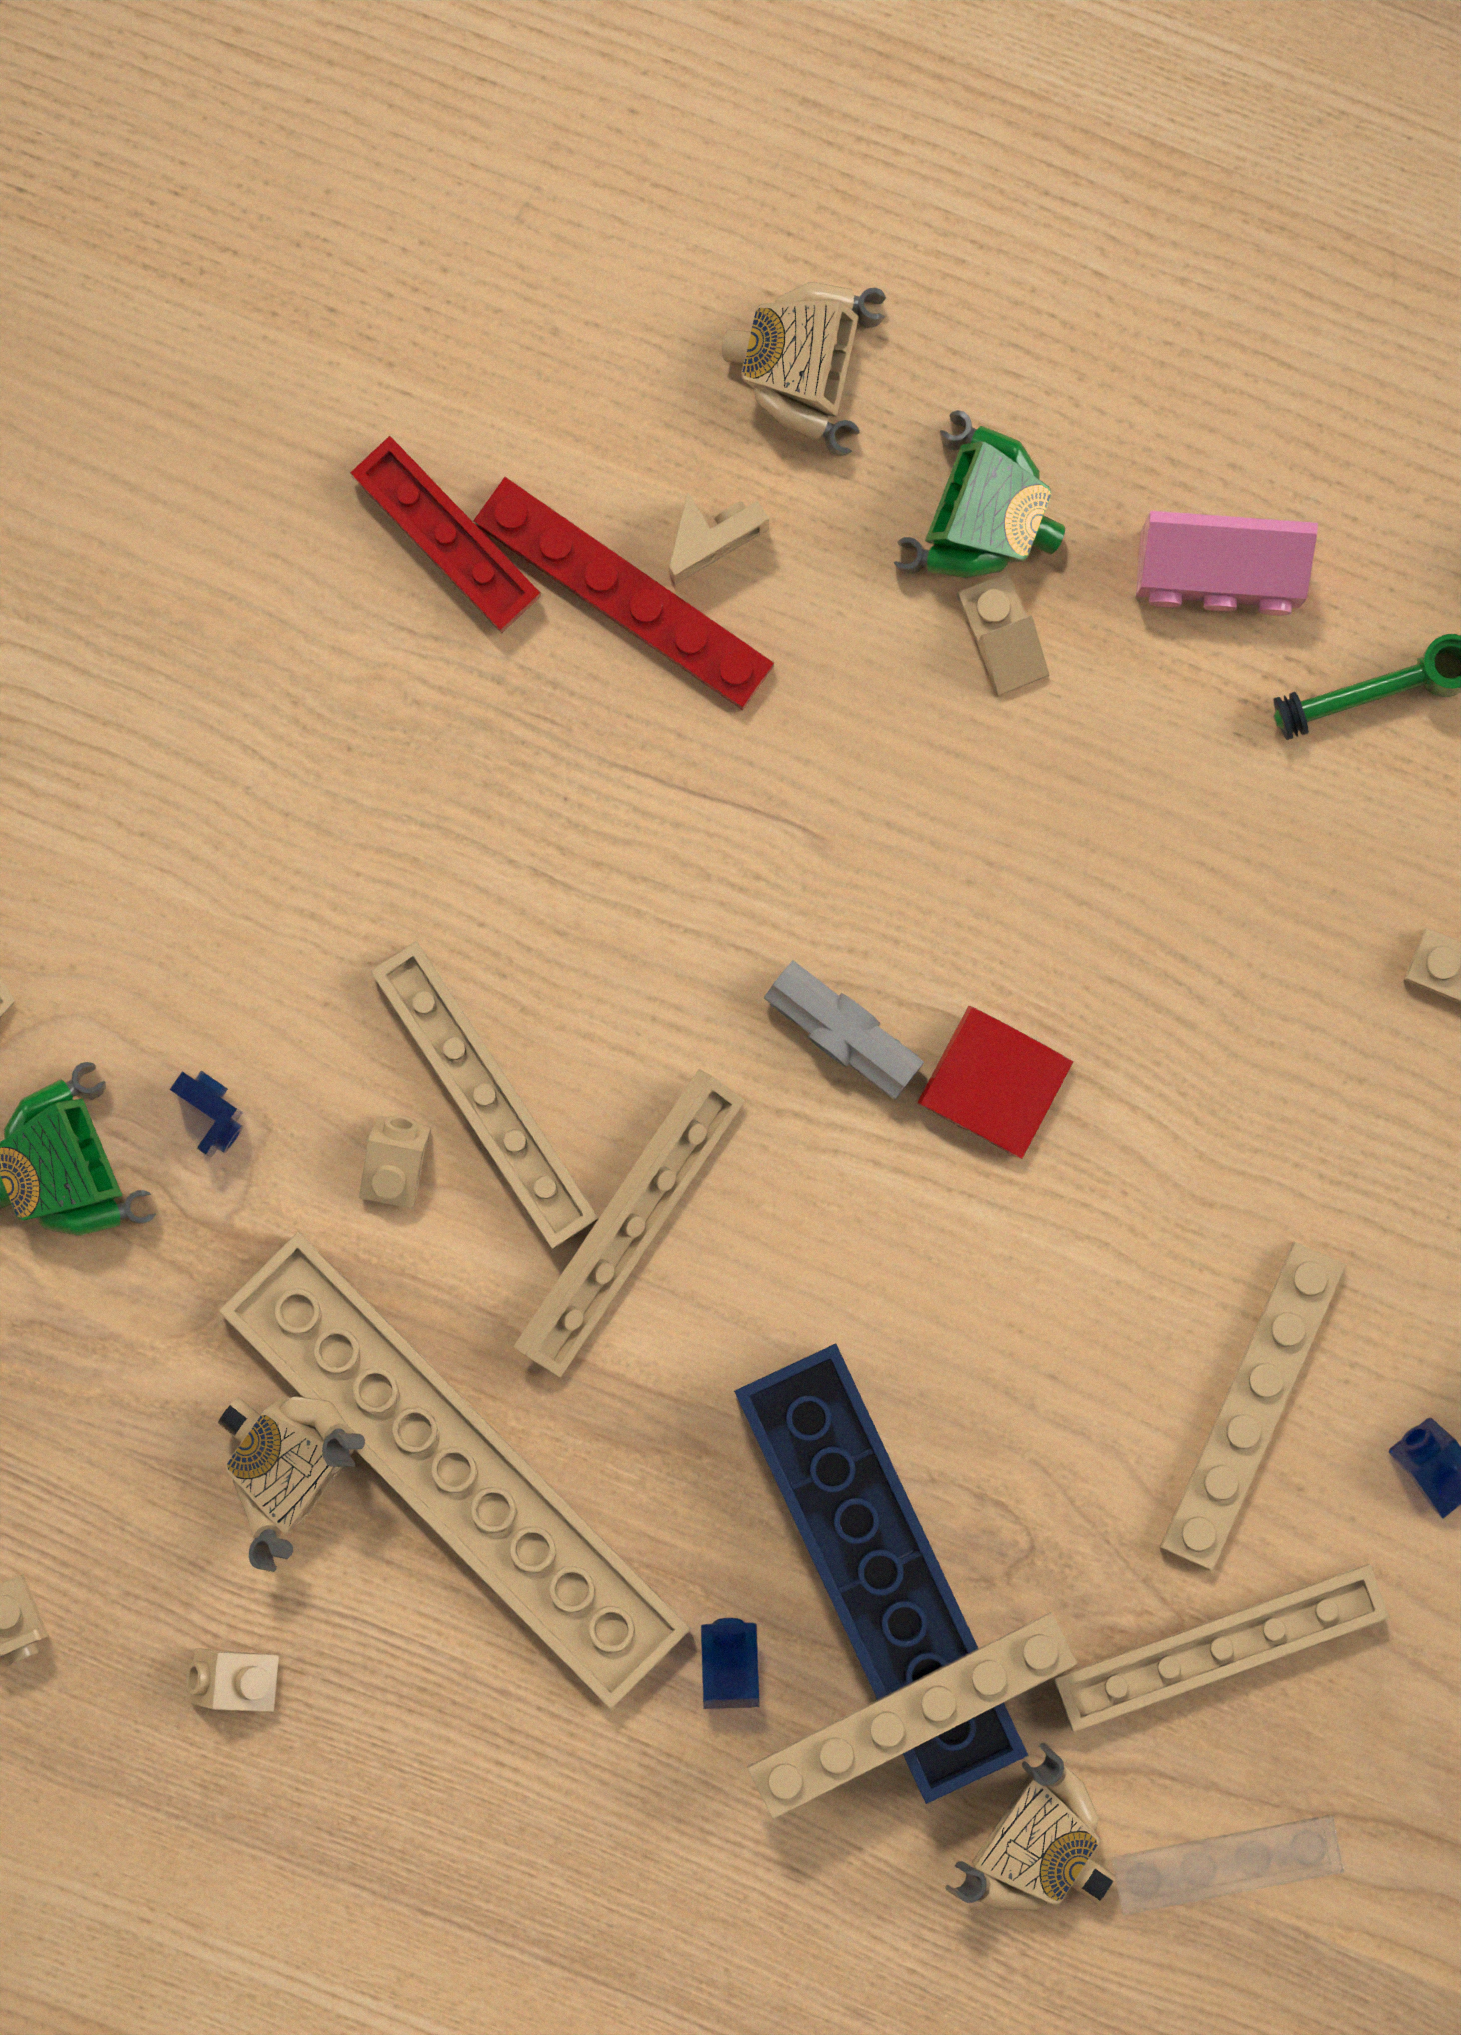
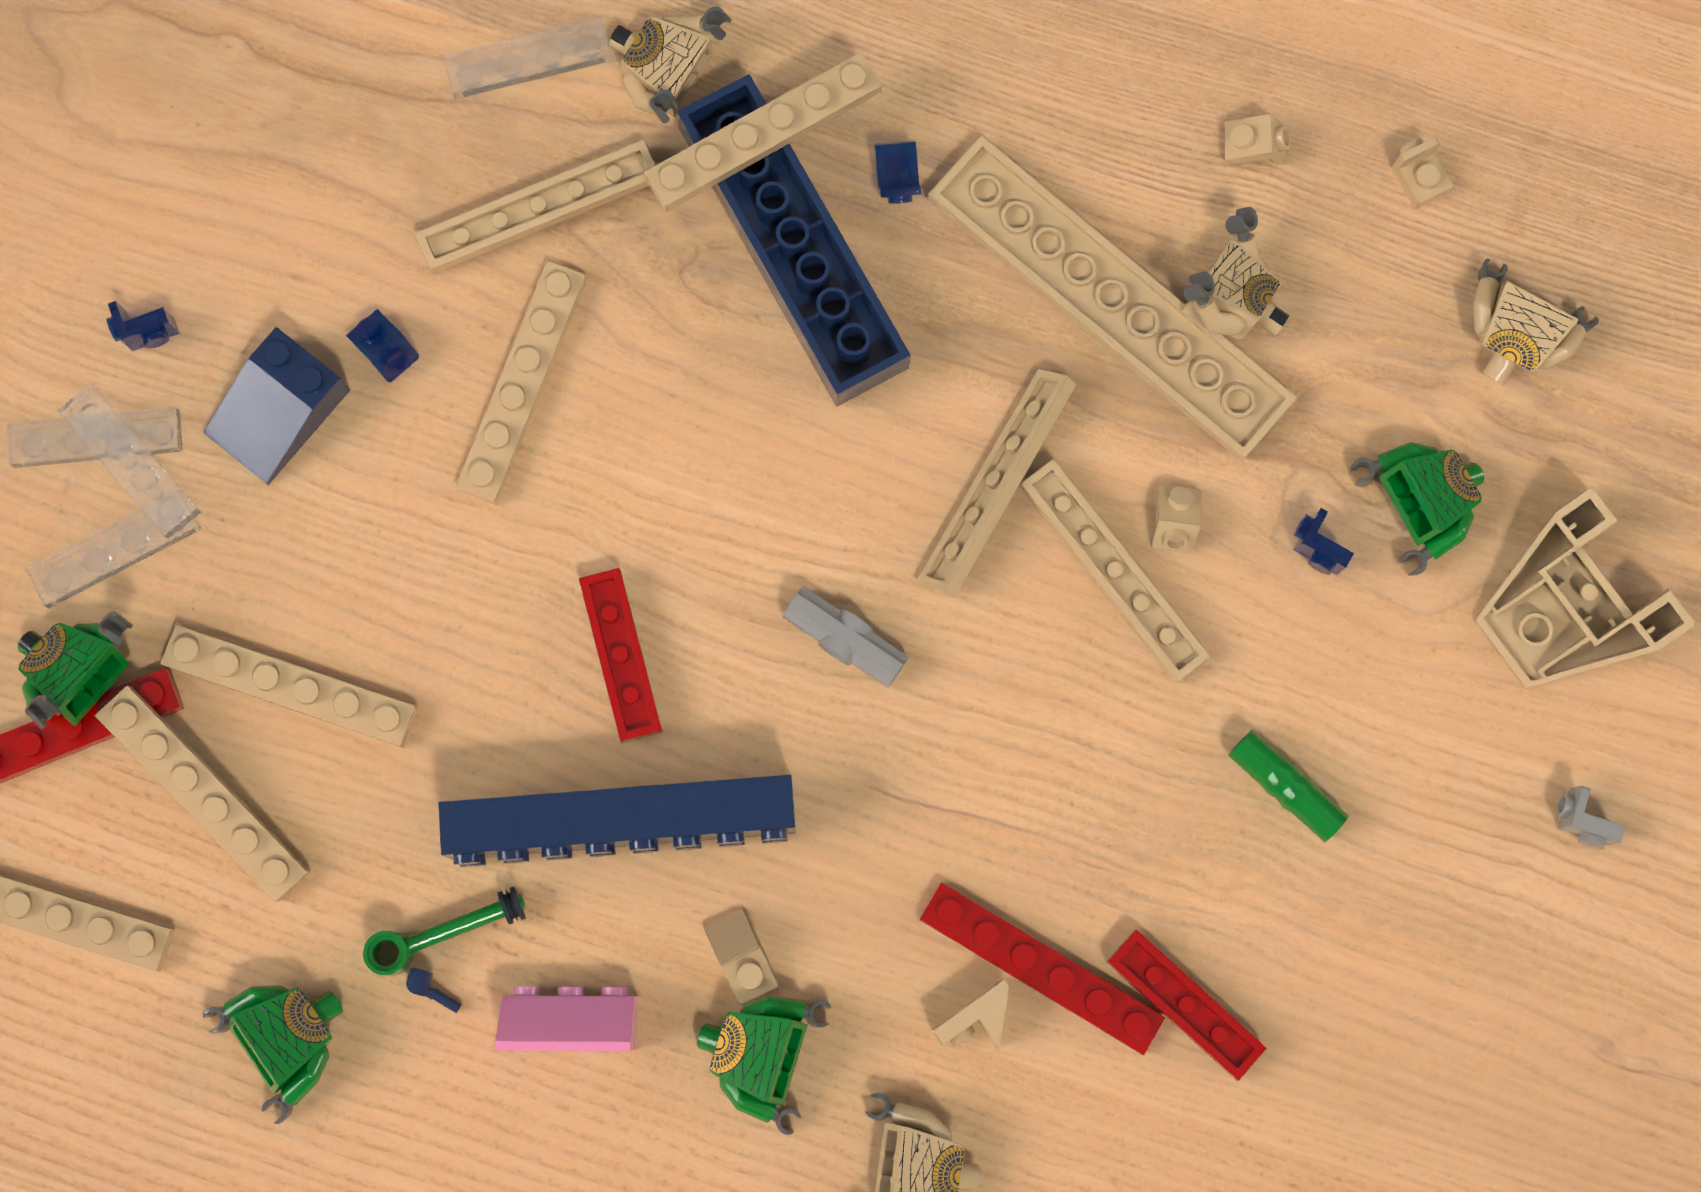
camera: 170 degrees right, 5 degrees down
(286, 799) = (1288, 785): none -> green axle
(995, 1082) = (727, 606): red slope -> none
(1138, 1026) = (620, 655): none -> red plate
(1150, 807) = (617, 818): none -> dark blue brick
(1410, 625) = (419, 984): none -> dark blue hand

